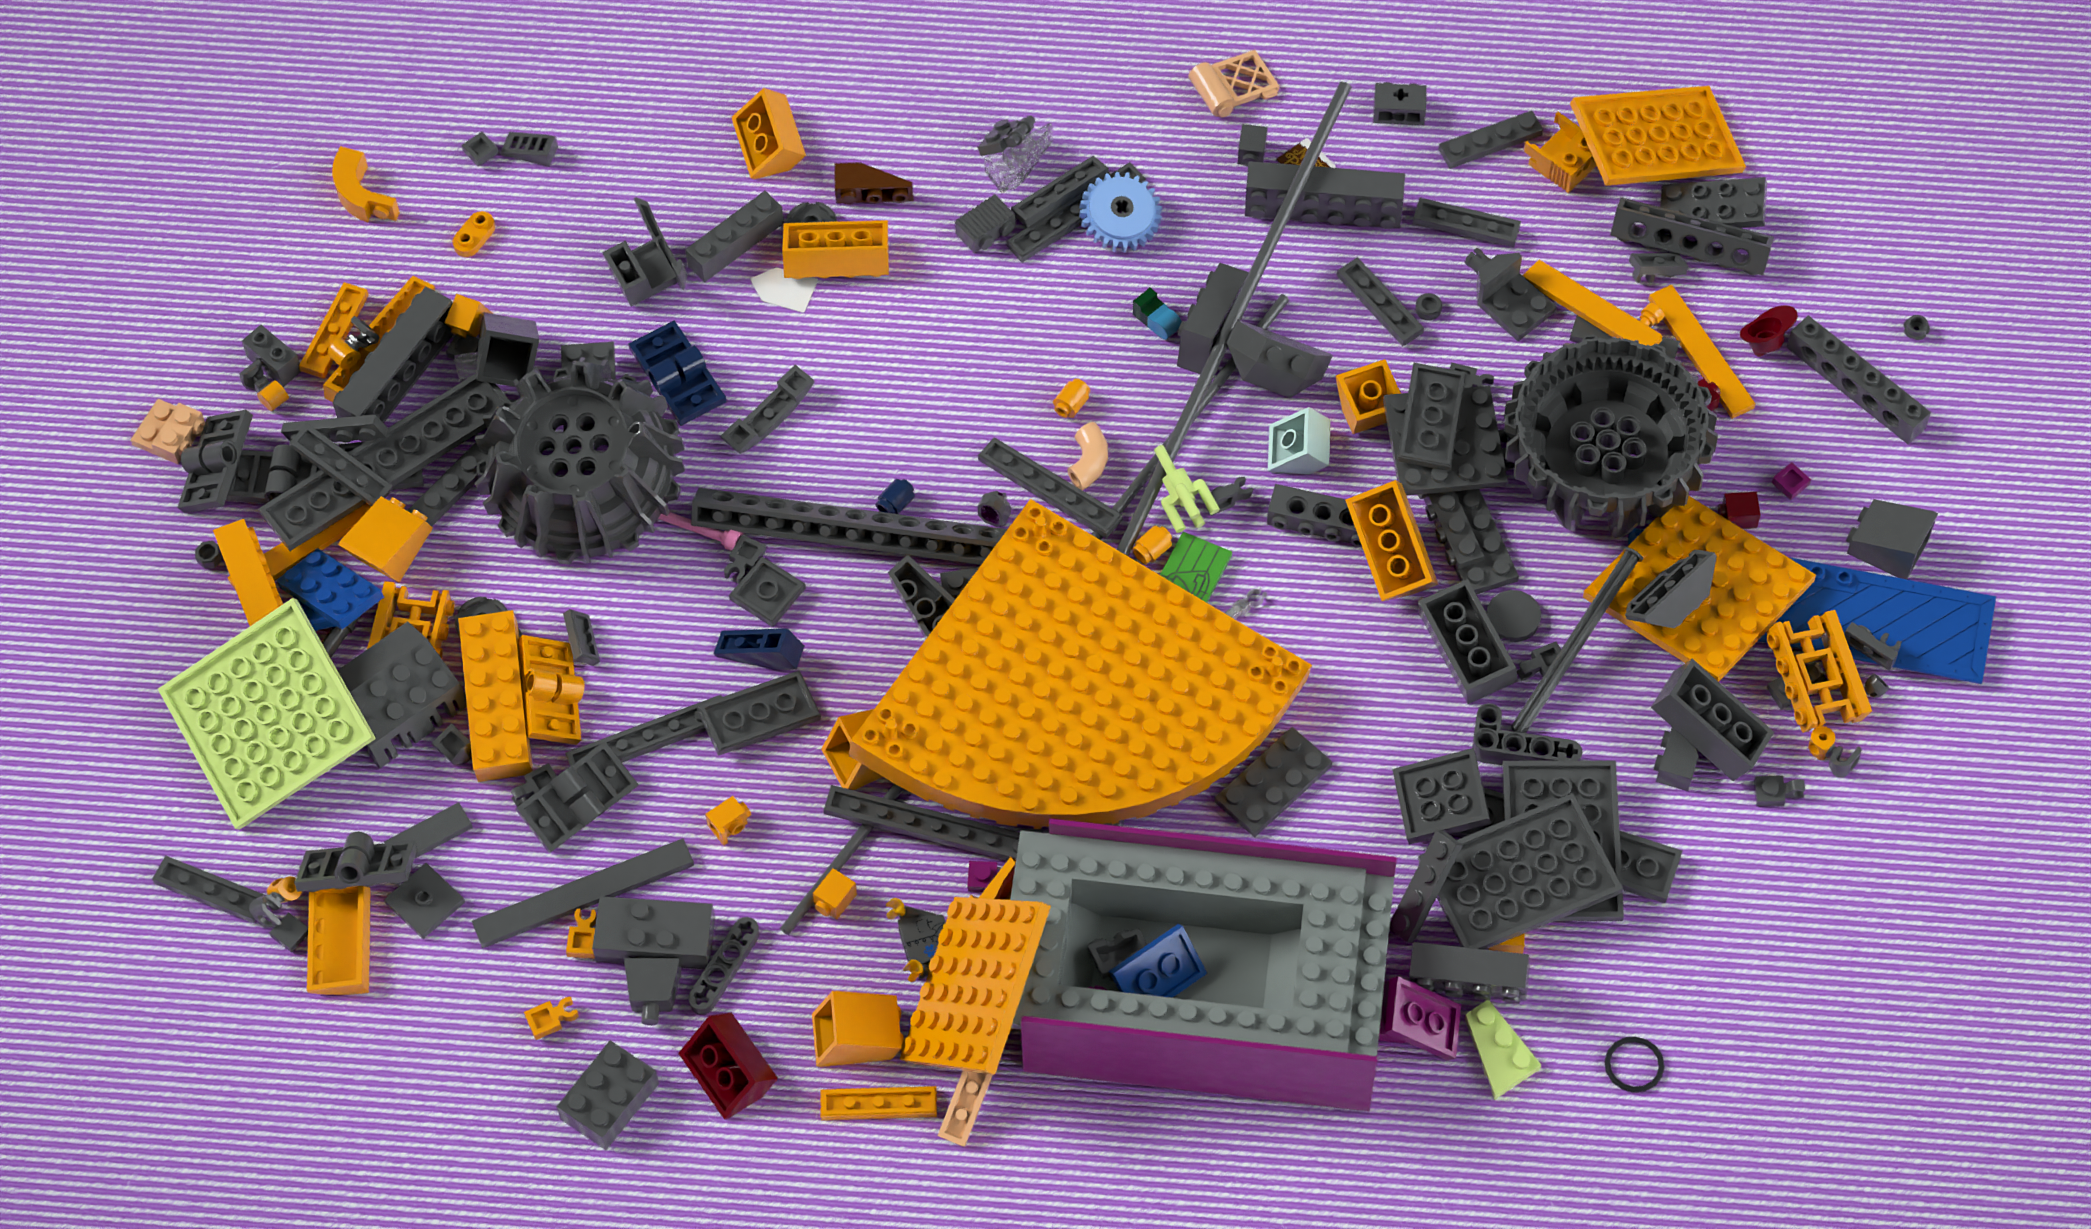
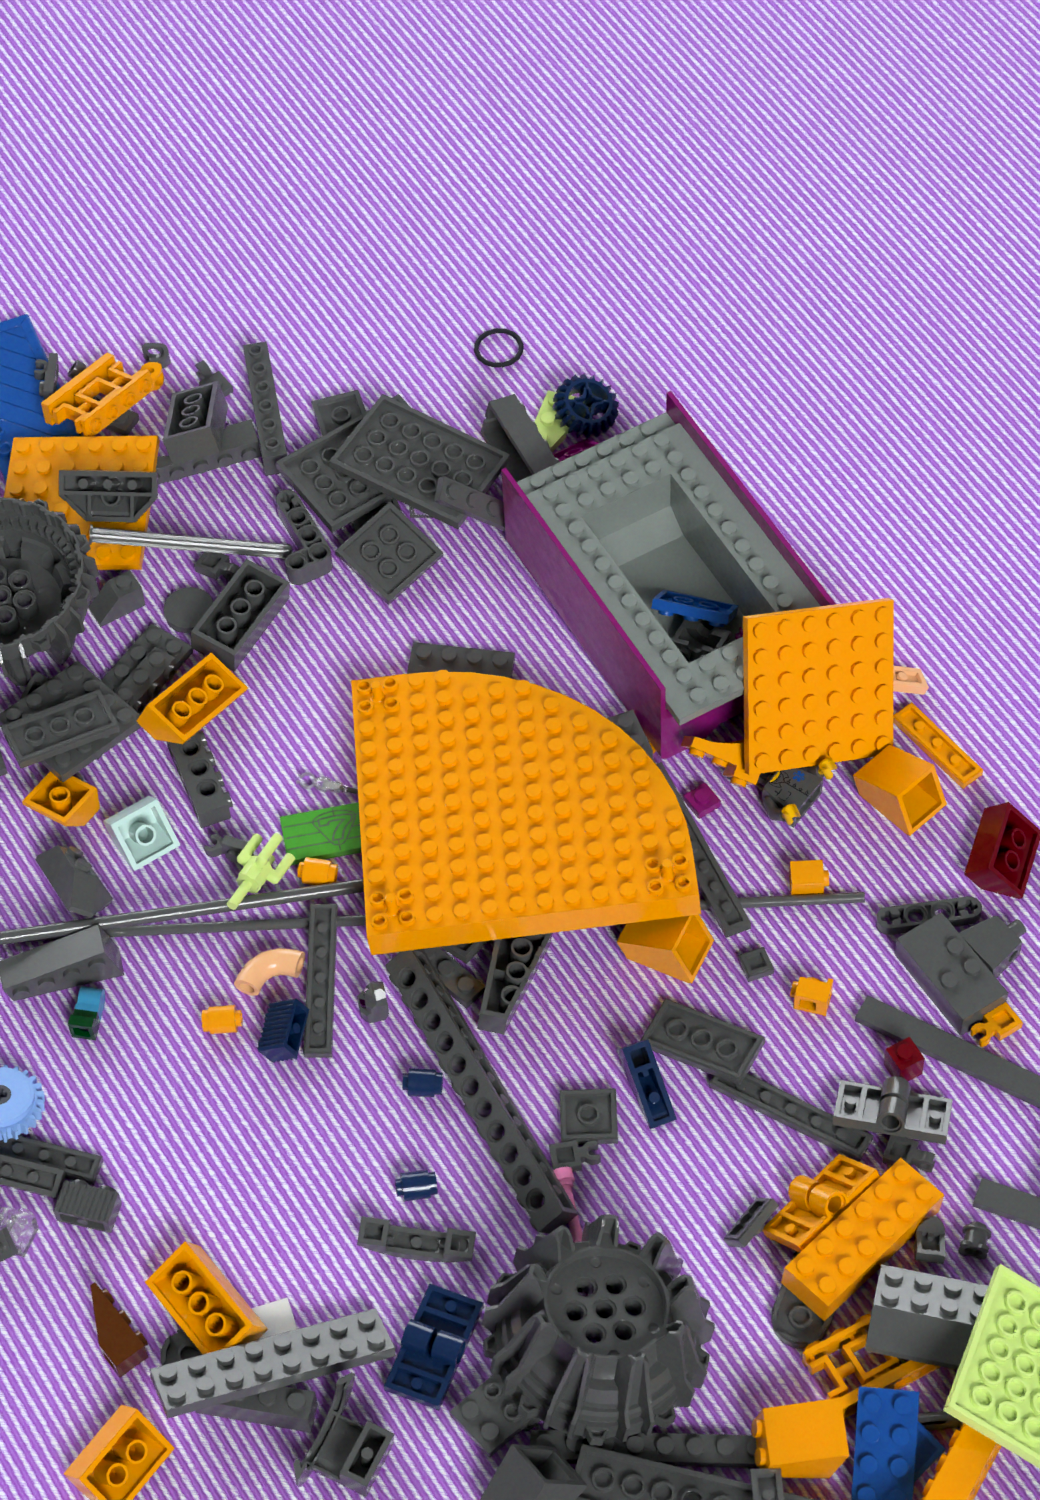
camera: 125 degrees left, 5 degrees down
(427, 777) = (975, 1240): none -> dark grey brick
(611, 839) = (904, 1060): none -> dark red brick
(747, 254) = (271, 1363): none -> plate
(795, 805) = (756, 964): none -> dark grey tile
(813, 440) = (416, 1185): none -> dark blue brick
(1022, 430) = (283, 1030): none -> dark blue brick
(1493, 1050) = (578, 412): none -> dark blue gear
(1566, 567) = (117, 598): none -> dark grey slope
(1703, 808) = (265, 405): none -> dark grey brick

